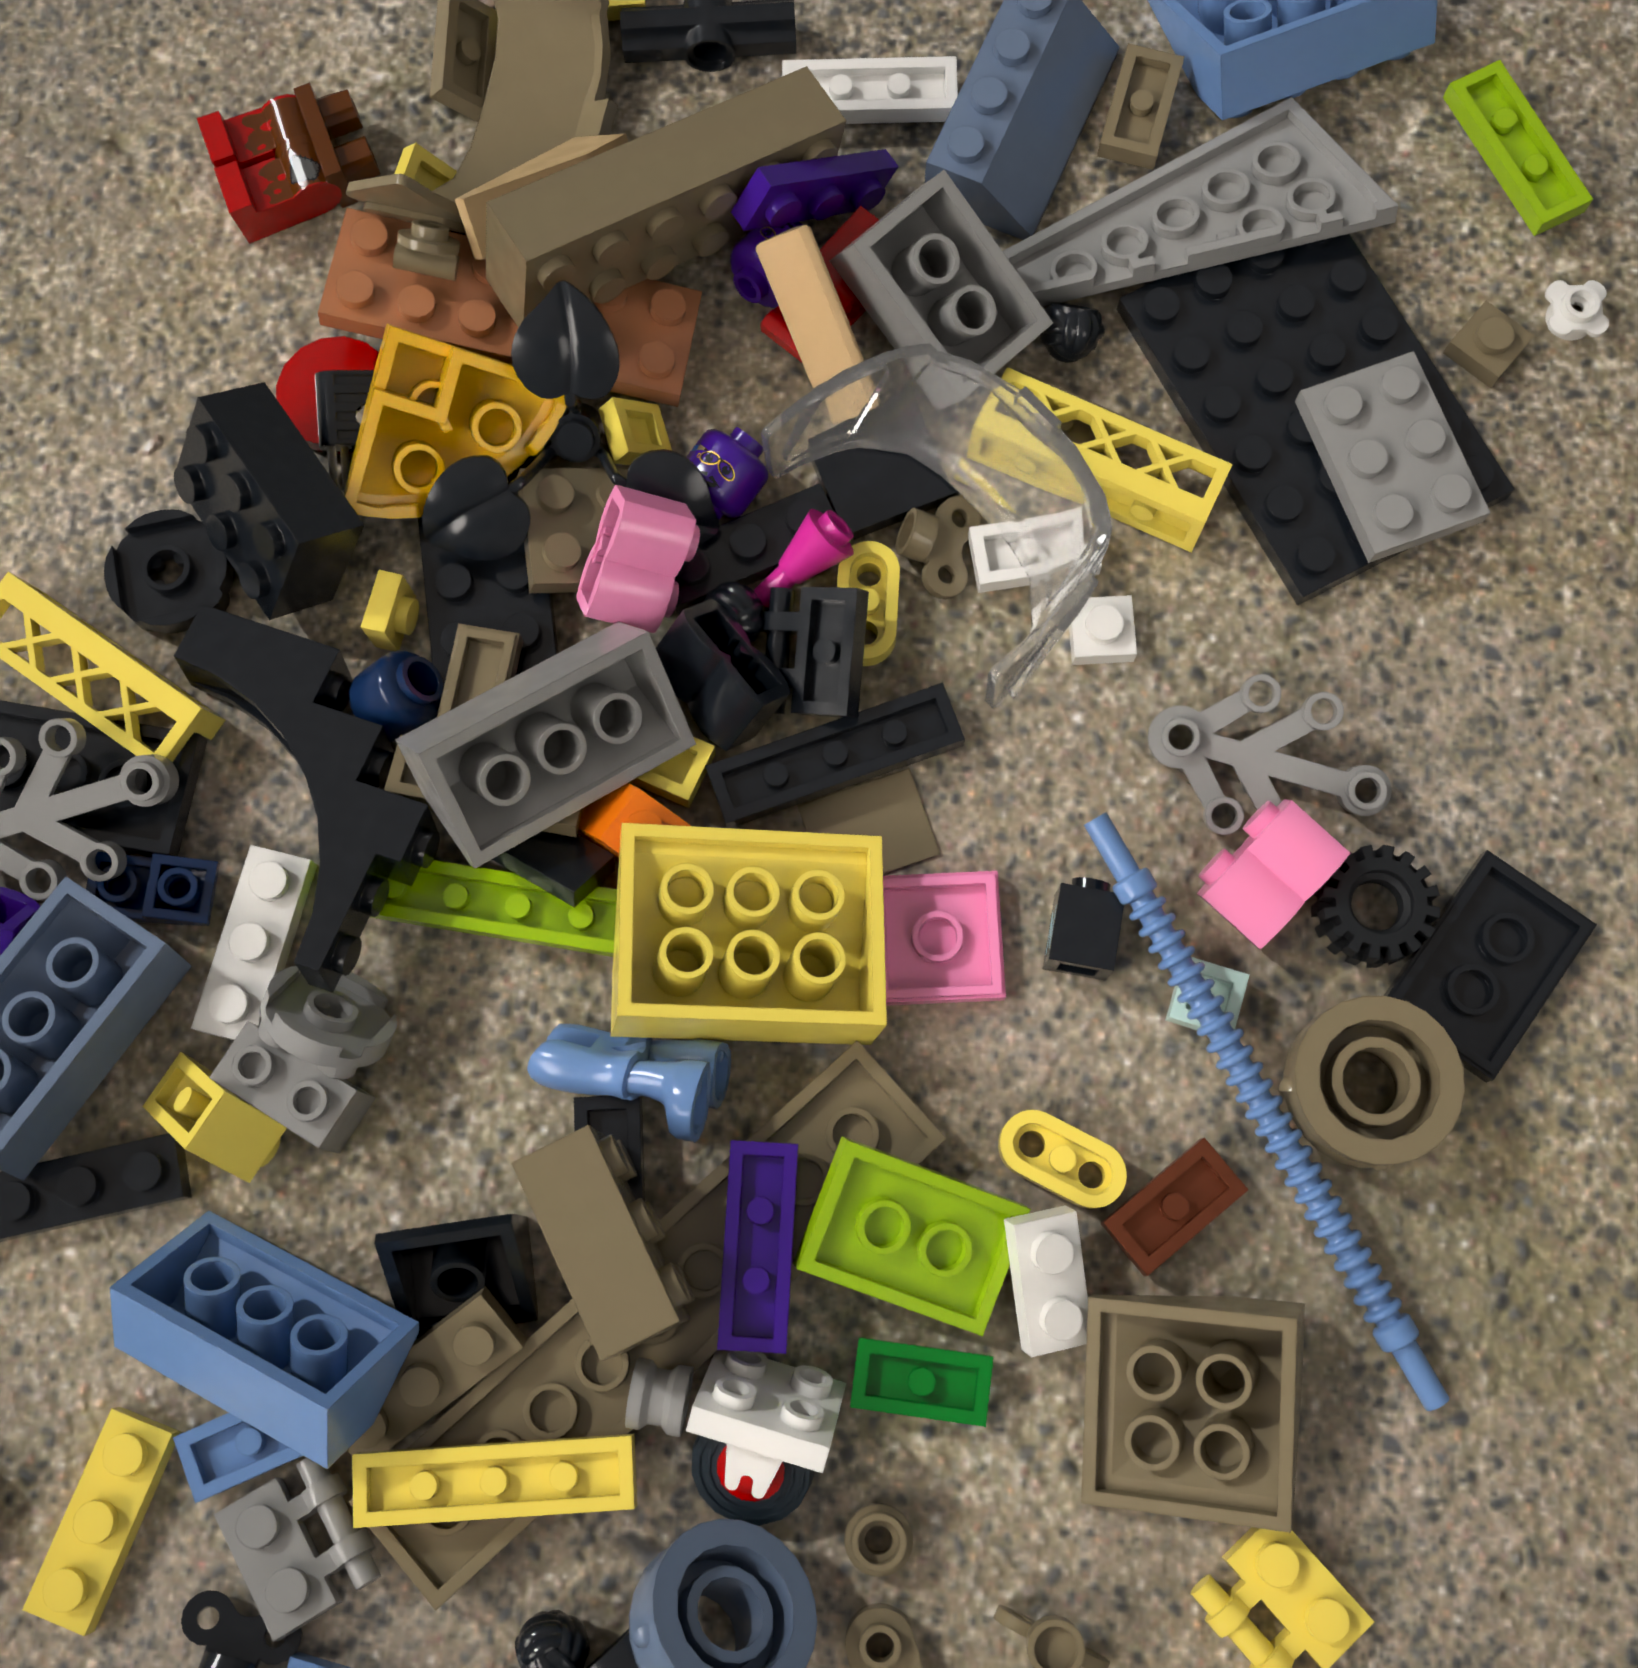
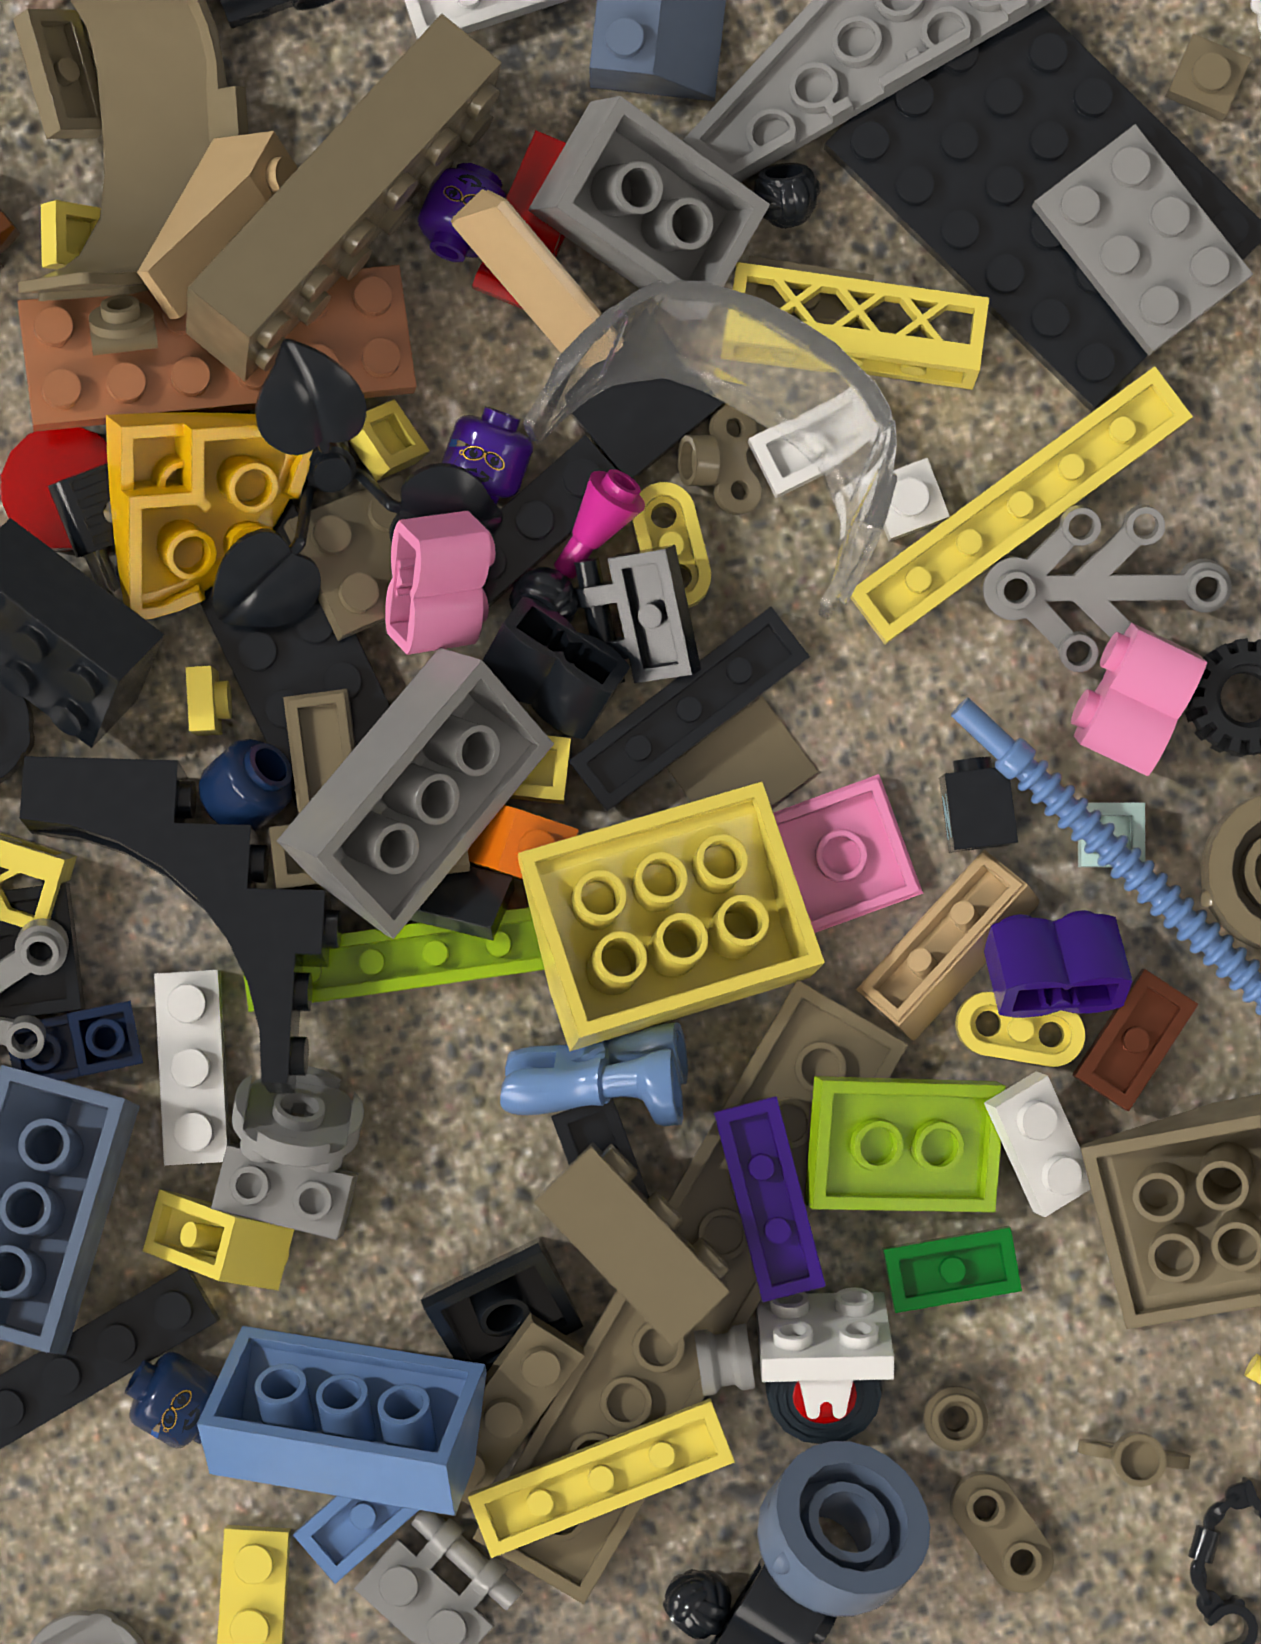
camera: 20 degrees left, 10 degrees up
(103, 1254) = (170, 1398): none -> dark blue head
(814, 189) = (489, 135): dark purple plate -> none
(1016, 1057) = (946, 945): none -> tan slope
(1118, 1105) = (1057, 964): none -> dark purple brick
(1205, 663) = (1020, 505): none -> light yellow plate

